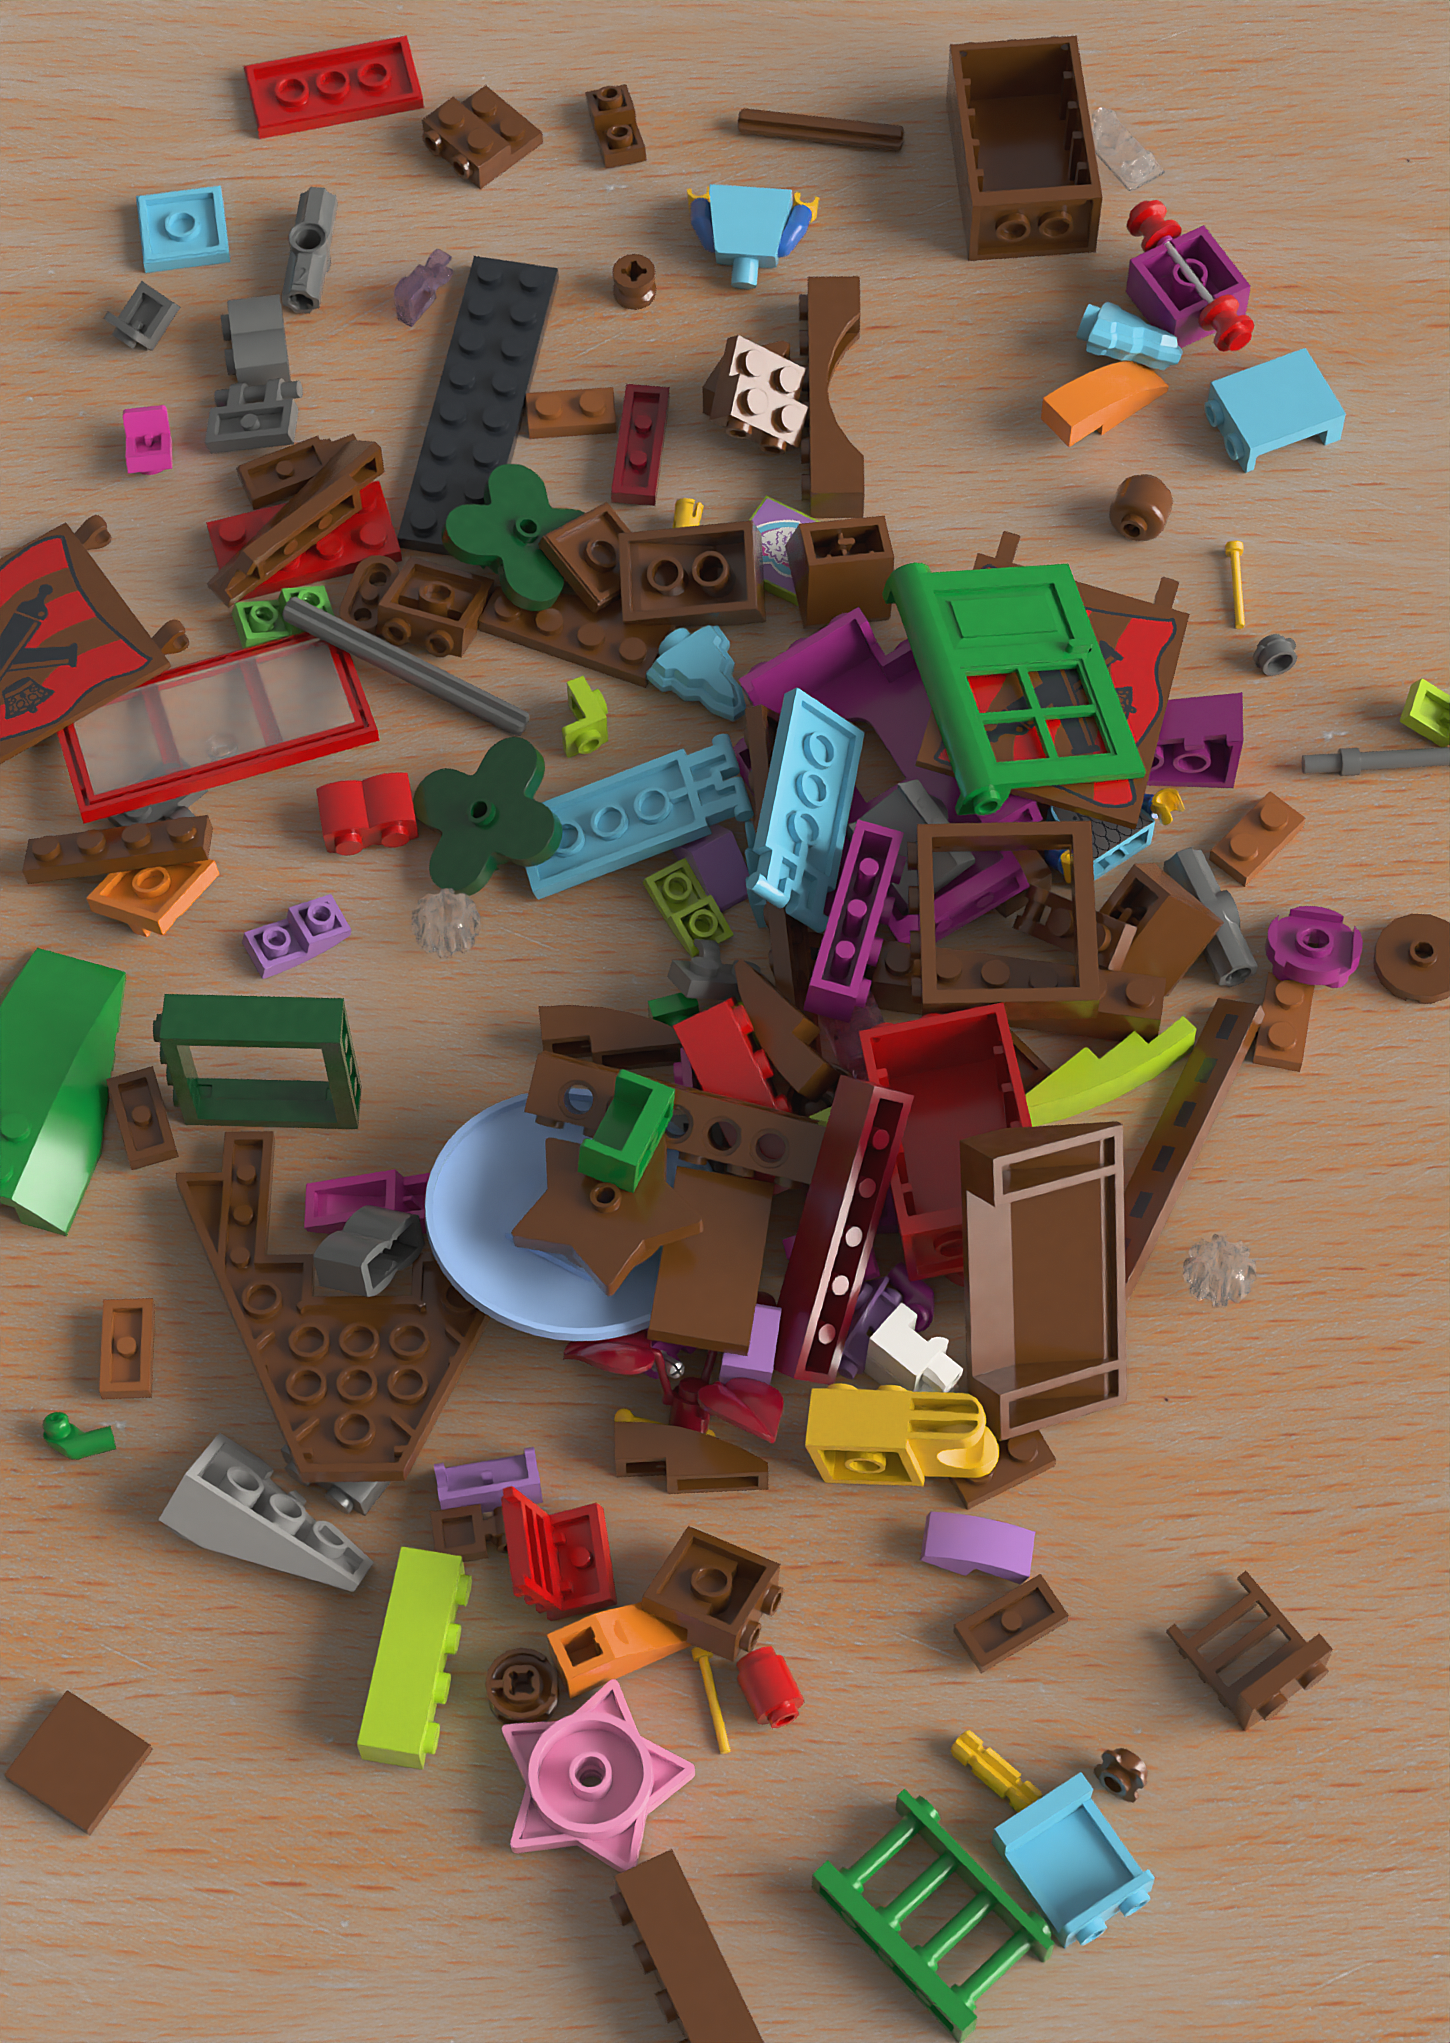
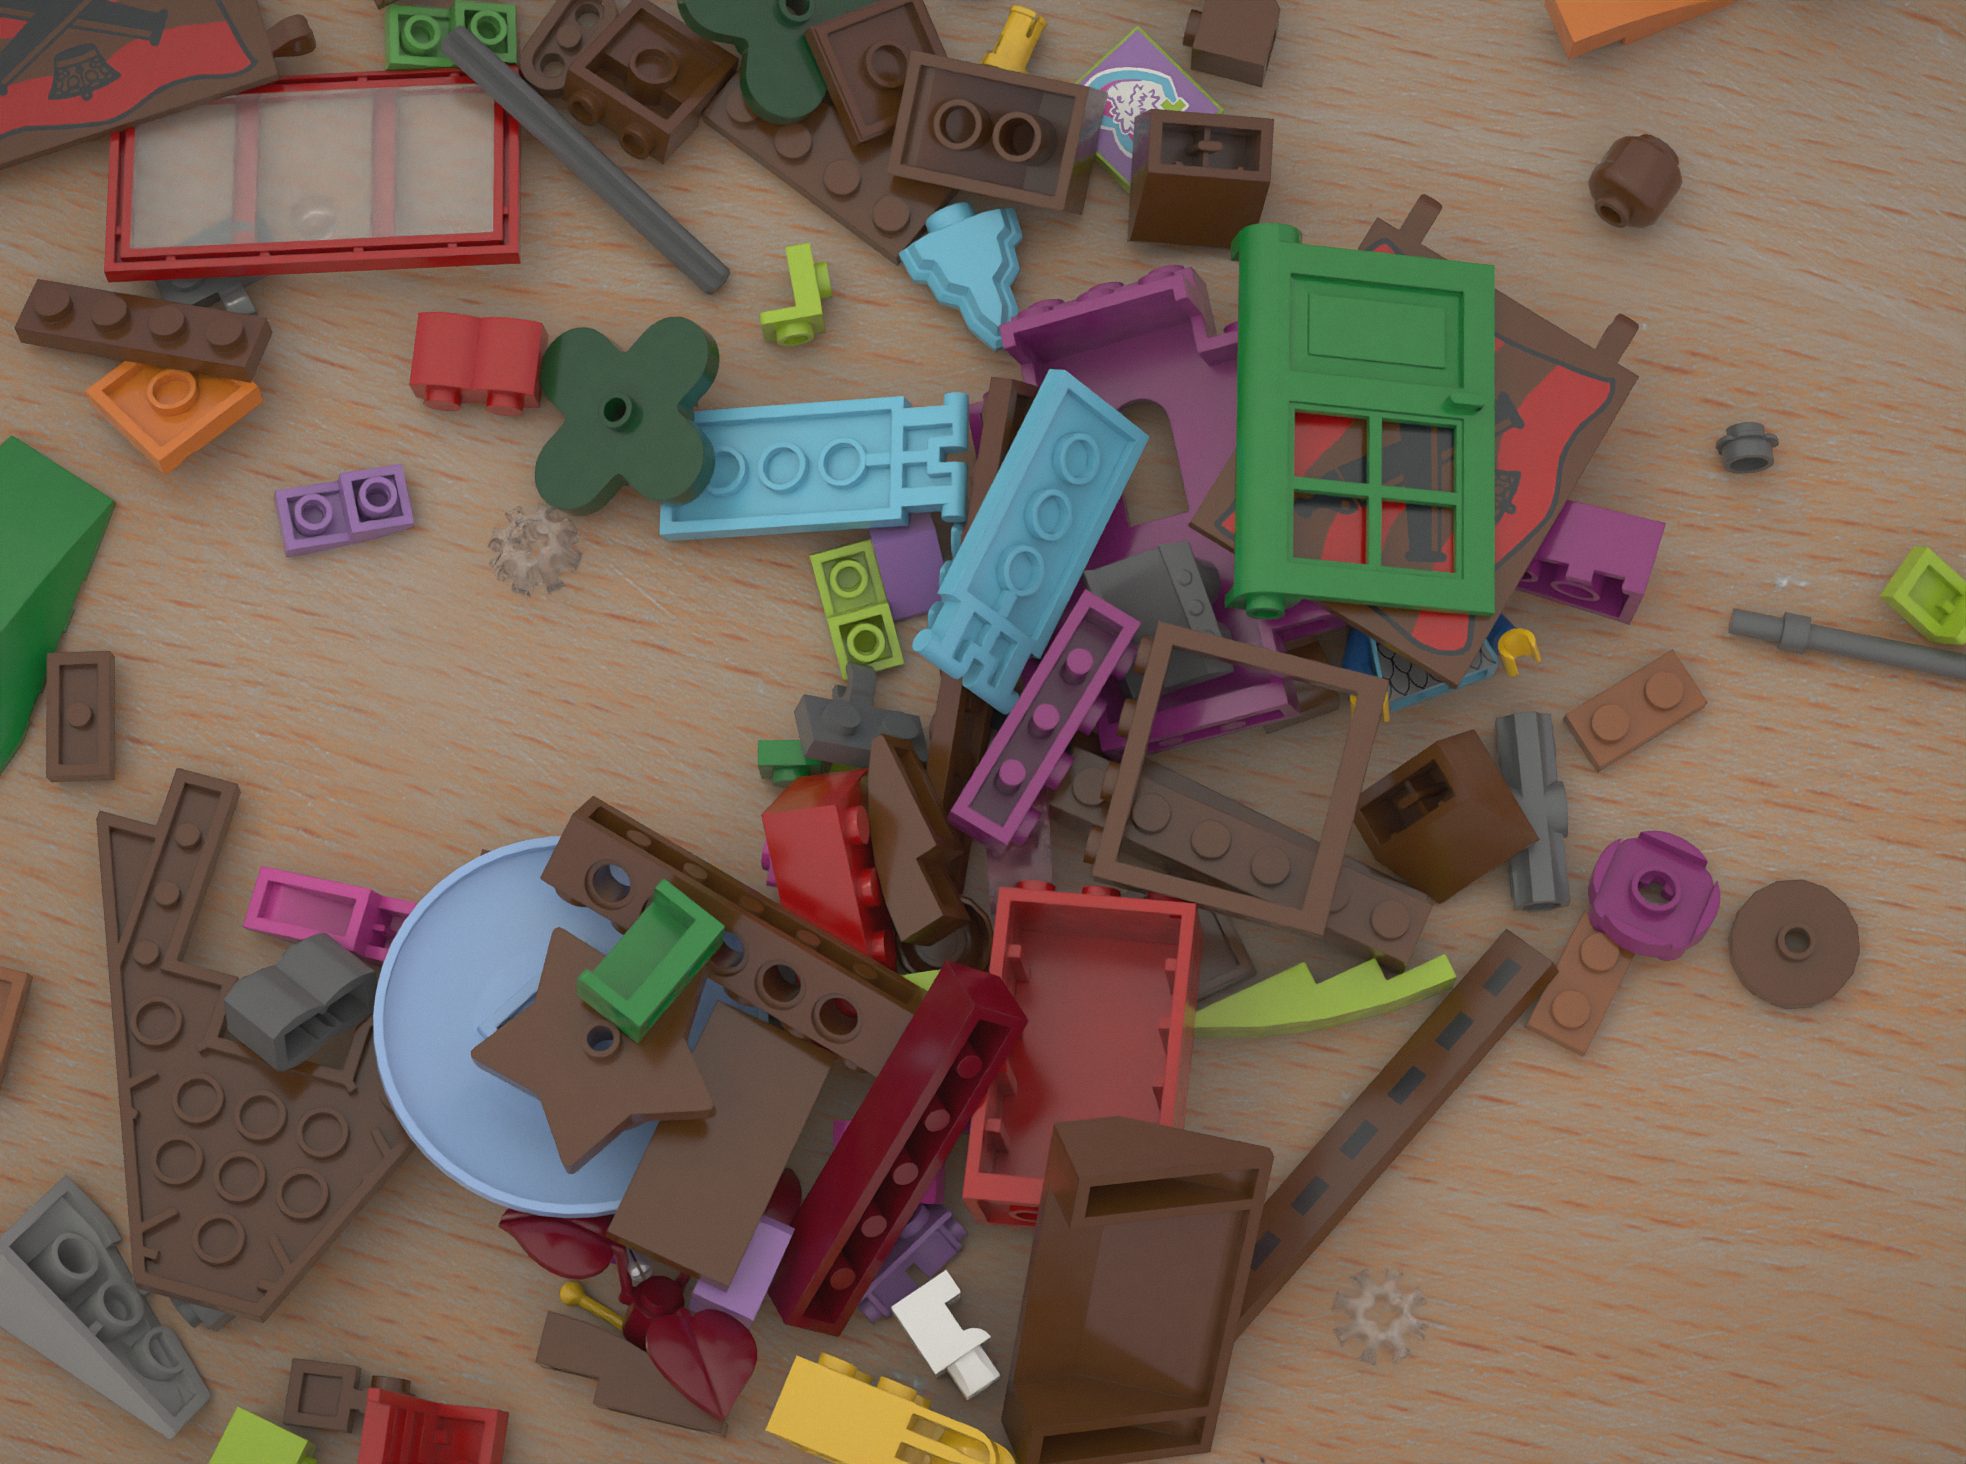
camera: 20 degrees right, 15 degrees up
(260, 1024) = (229, 708): dark green window -> none
(484, 1481) = (377, 1335): medium lavender hinge -> none
(608, 1036) = (697, 769): reddish brown slope -> none
(916, 1296) = (983, 1249): magenta arm -> none
(1112, 934) = (1378, 823): reddish brown plate -> none
(1233, 550) = (1744, 273): yellow piece -> none
(1273, 407) = (1866, 76): medium azure panel -> none

